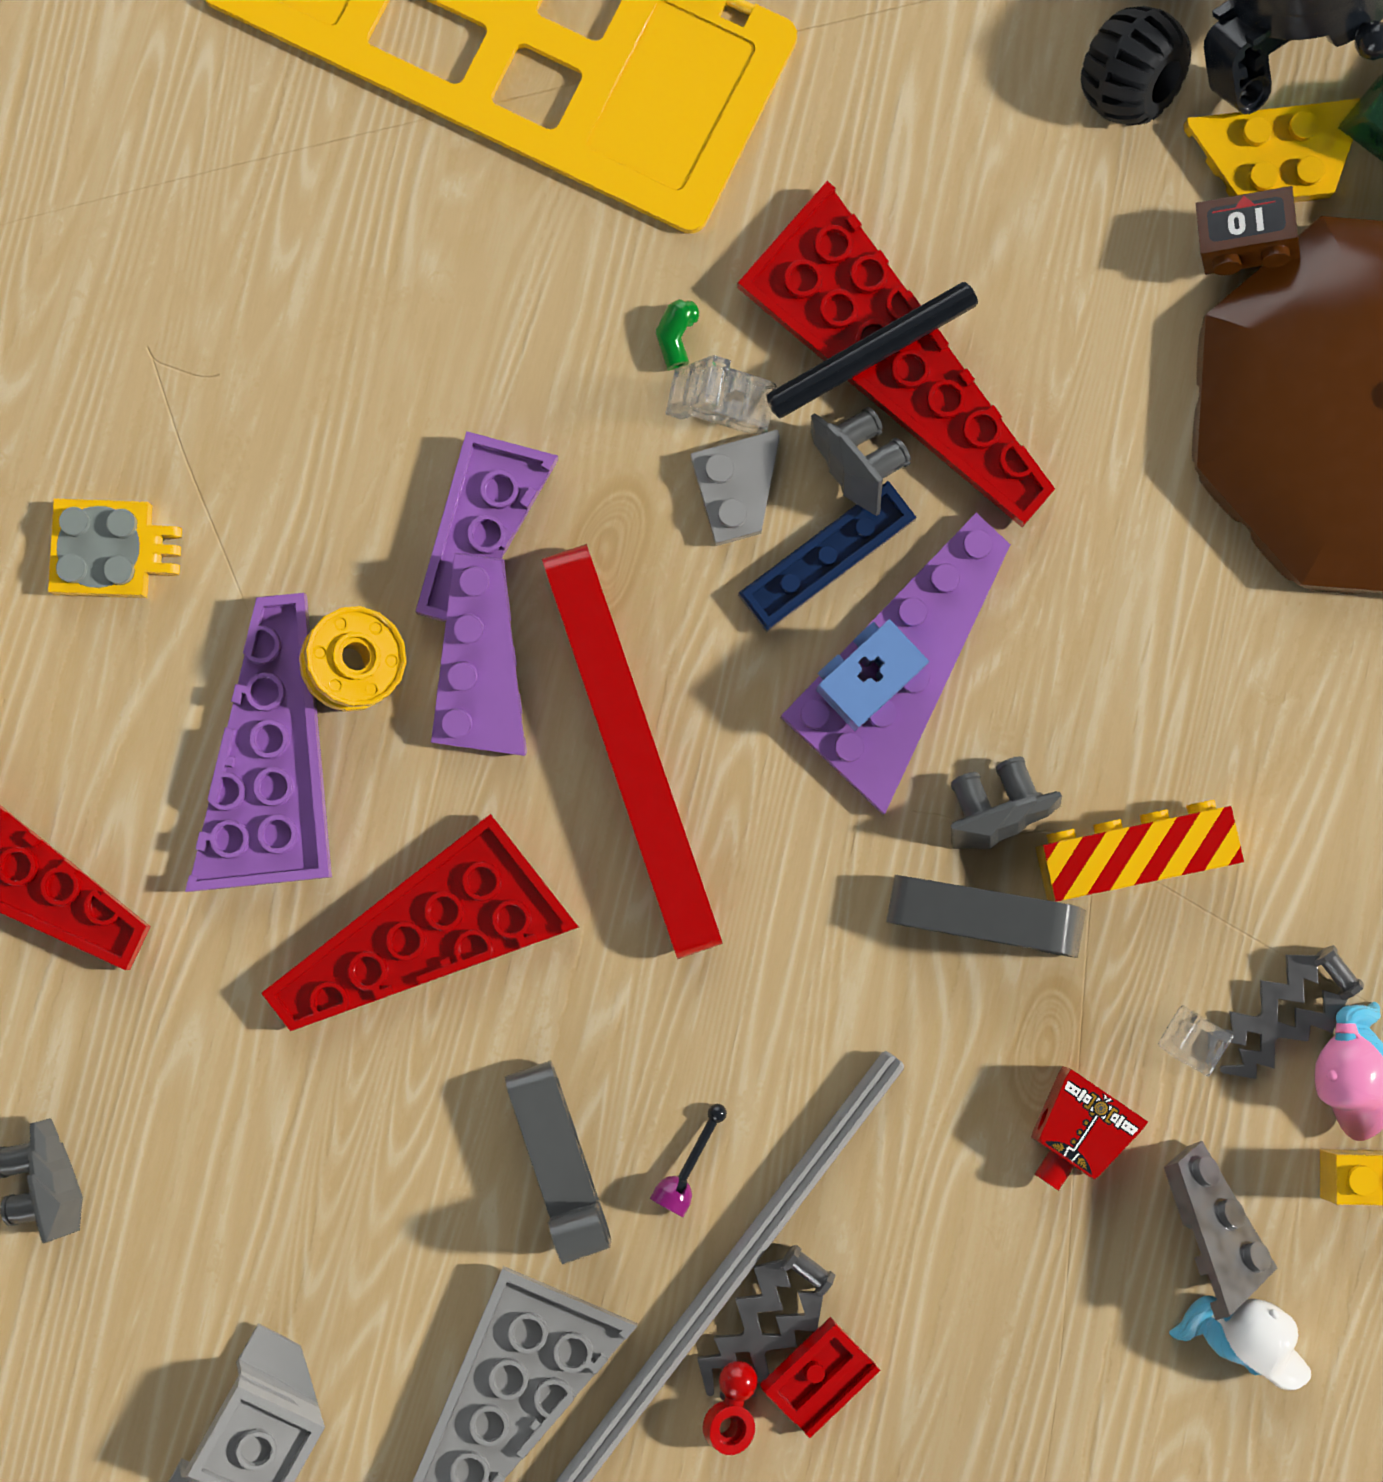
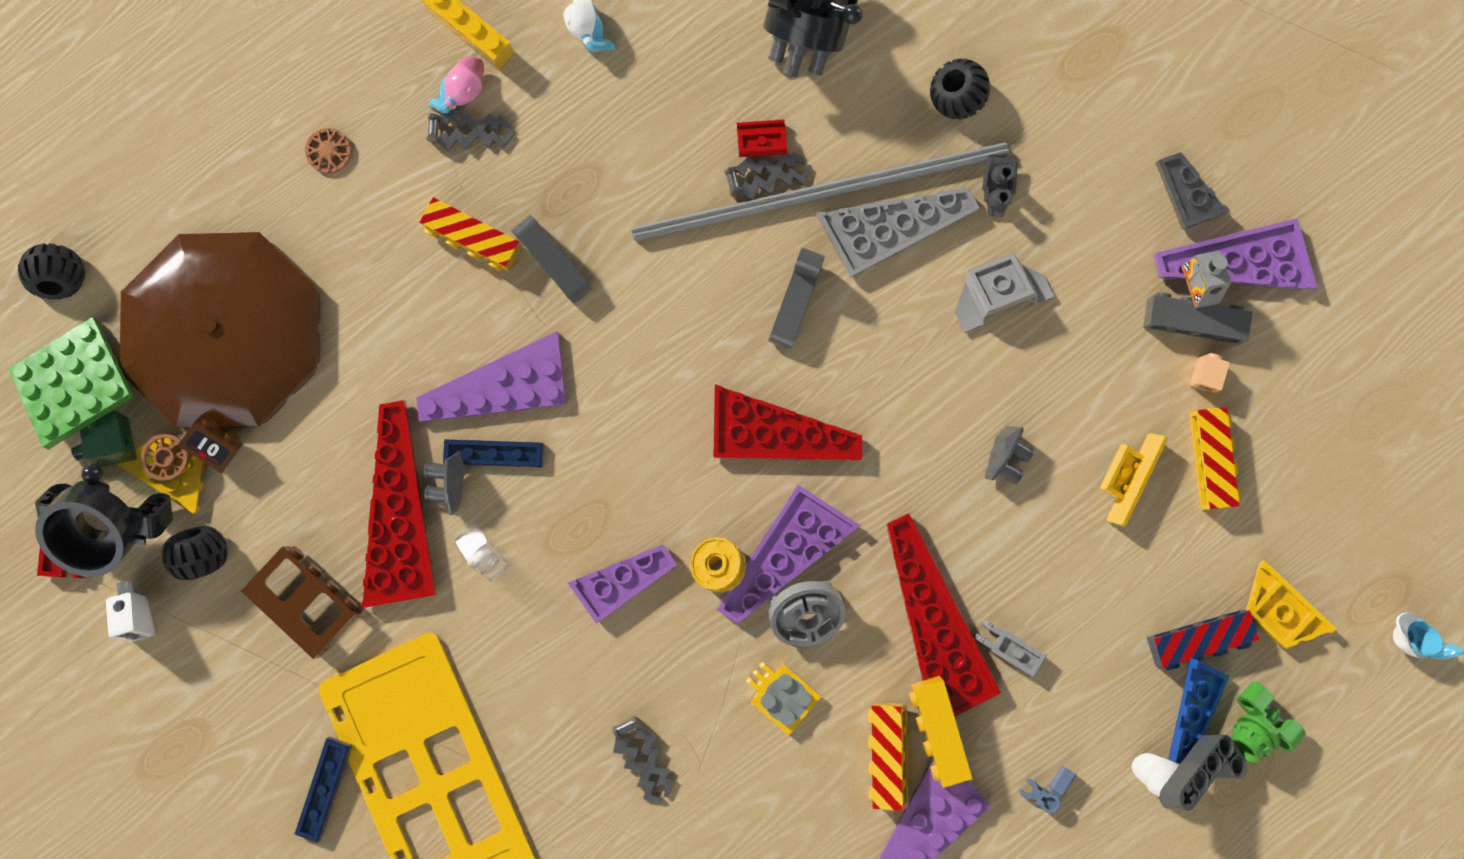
camera: 135 degrees left, 0 degrees up
(161, 693) = (803, 599): none -> light grey piece
(227, 288) = (646, 768): none -> flat silver piece
(478, 676) = (672, 518): medium lavender wing -> none
(632, 752) = (635, 438): red beam -> none
(670, 330) = (478, 598): green arm -> none
(675, 1191) = (760, 252): hinge -> none
(736, 485) = (505, 512): light grey wing -> none
(738, 1383) = (795, 160): red plate -> none
(872, 349) = (403, 520): black axle -> none
(898, 664) = (528, 380): medium blue brick -> none
(925, 88) = (288, 613): none -> reddish brown window
(988, 825) = (520, 293): dark grey connector -> none
(1082, 1129) = (583, 149): red torso -> none
(1195, 1040) = (511, 147): clear slope -> none
(1227, 1240) = (563, 62): flat silver wing -> none
(1299, 158) = (164, 458): none -> nougat wheel

